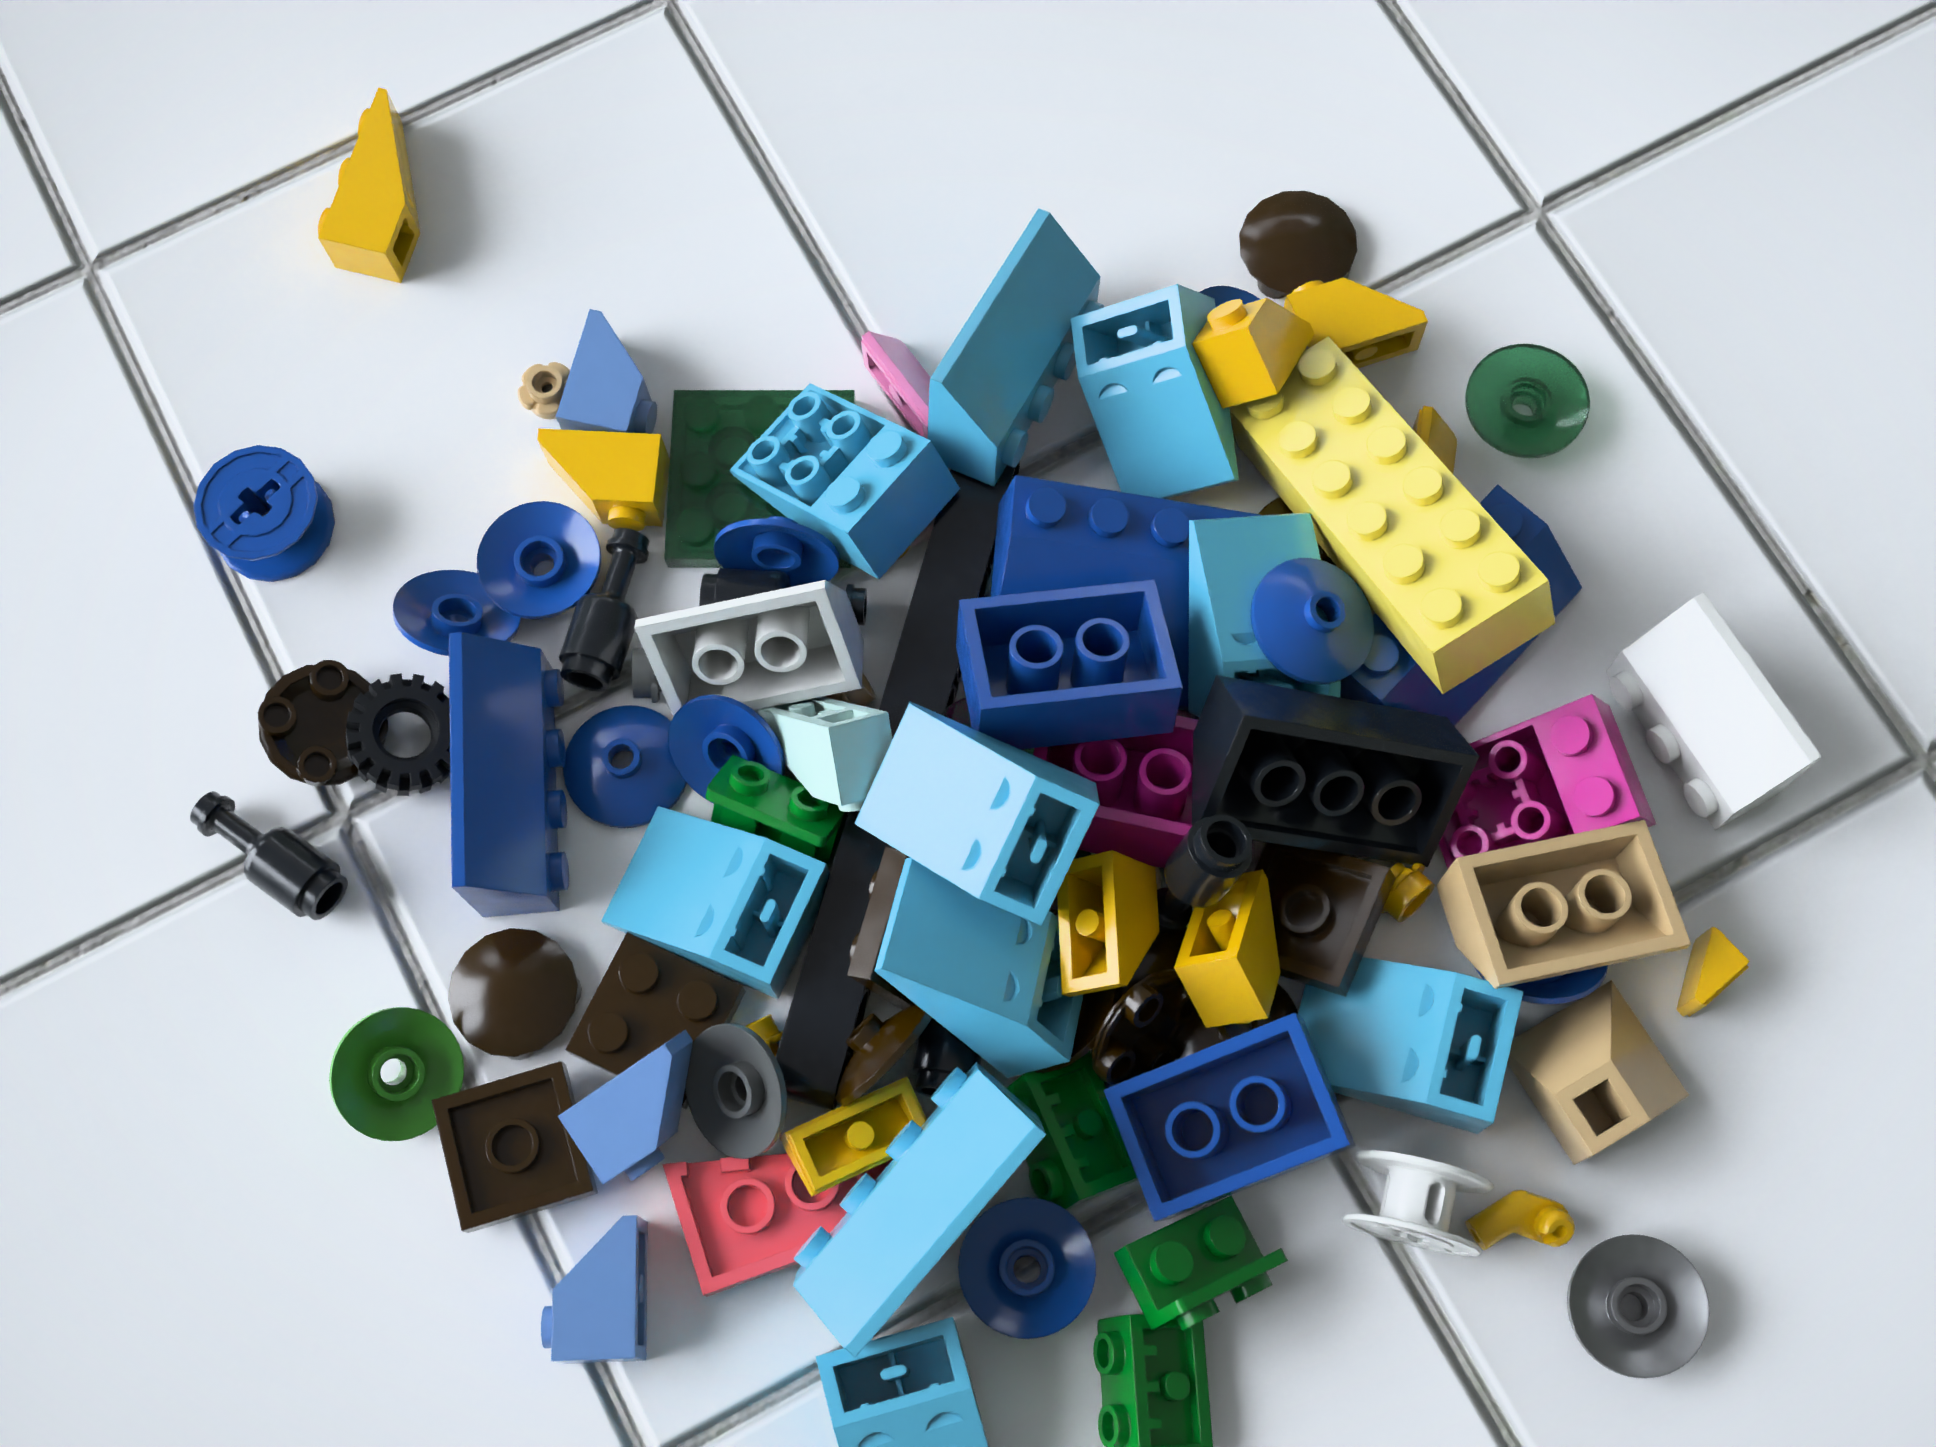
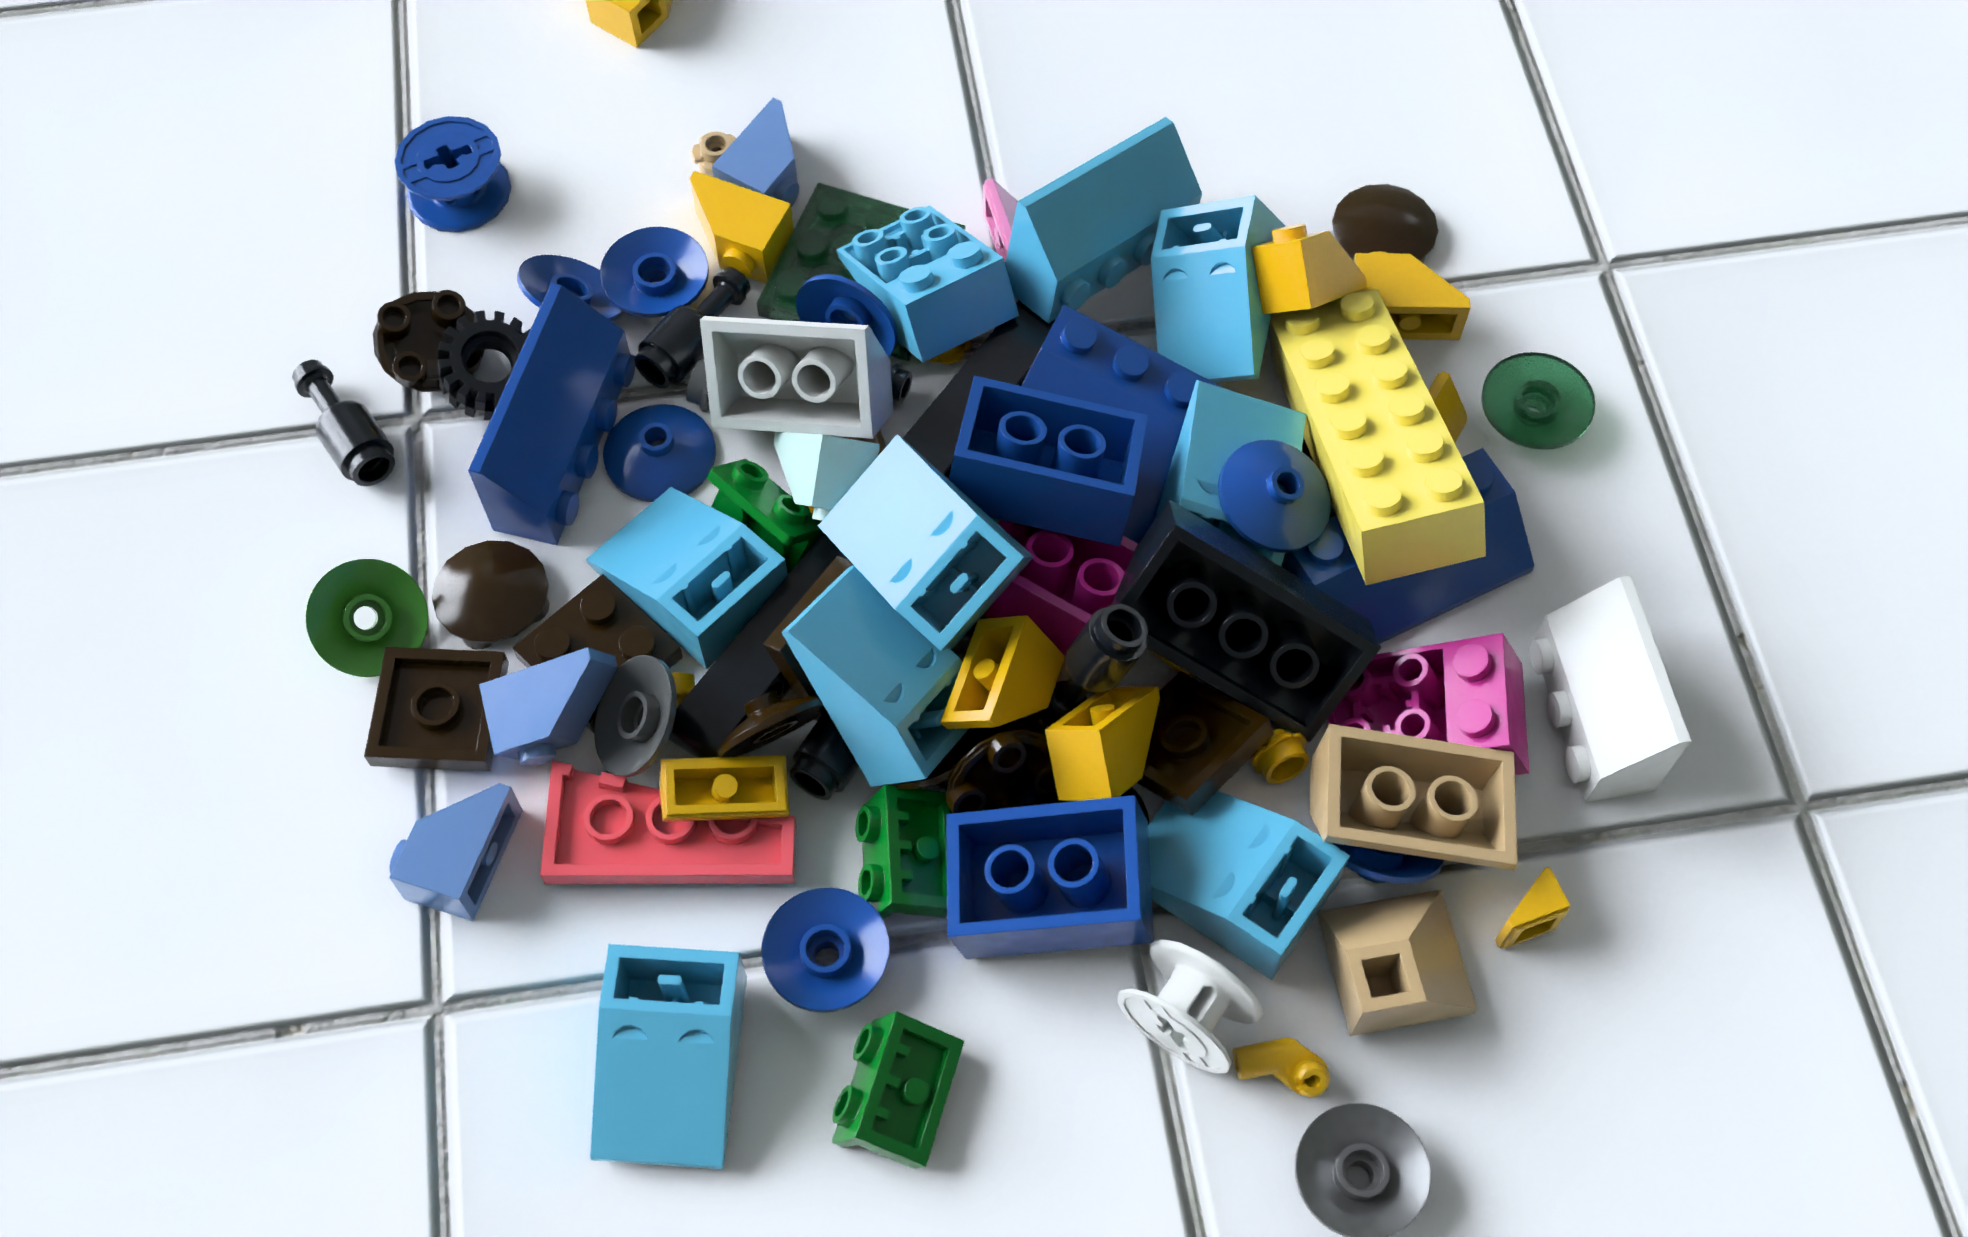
camera: 15 degrees right, 10 degrees down
(714, 729) = (738, 433): blue dish -> none
(915, 1206) = (745, 850): medium azure slope -> none
(1193, 1262) = (973, 995): green bracket -> none

